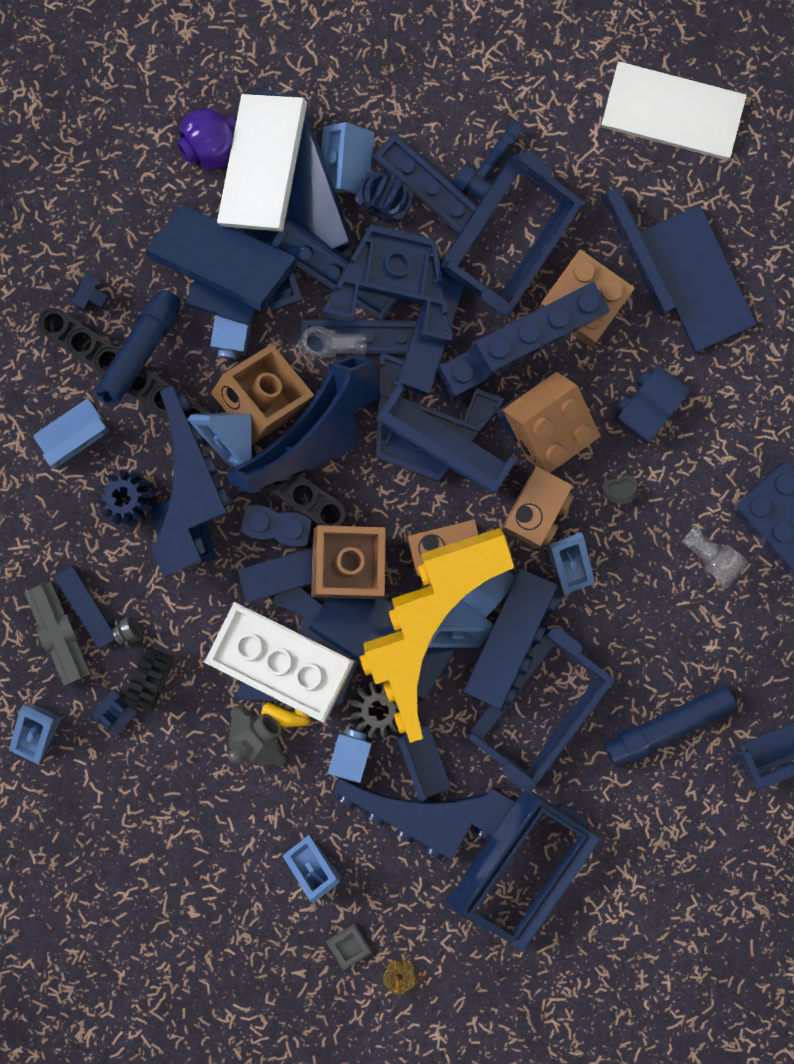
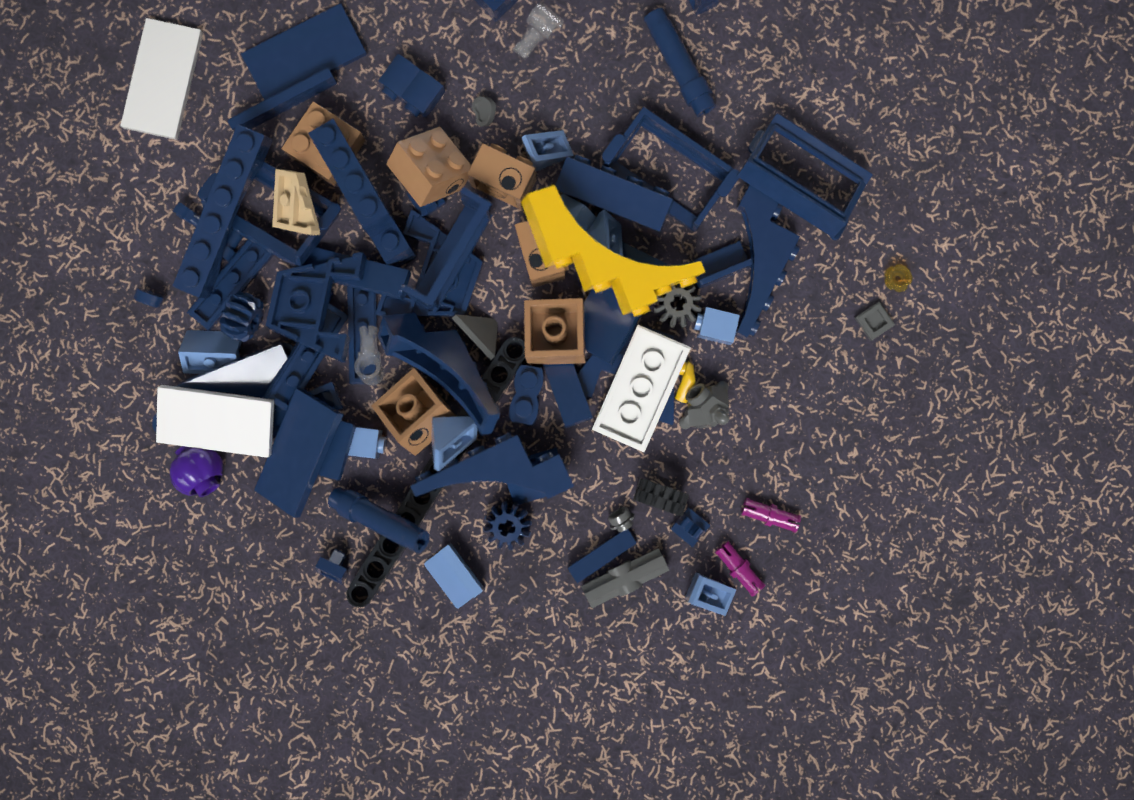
camera: 85 degrees left, 0 degrees up
(62, 769) = (740, 568): none -> magenta pin
(123, 809) = (771, 515): none -> magenta pin
(312, 869) = (813, 353): medium blue slope -> none
(355, 476) = (481, 331): none -> dark grey slope
(412, 89) = (148, 297): none -> dark blue tile
(511, 261) = (293, 203): none -> tan wing
(543, 193) = (205, 251): none -> dark blue arch

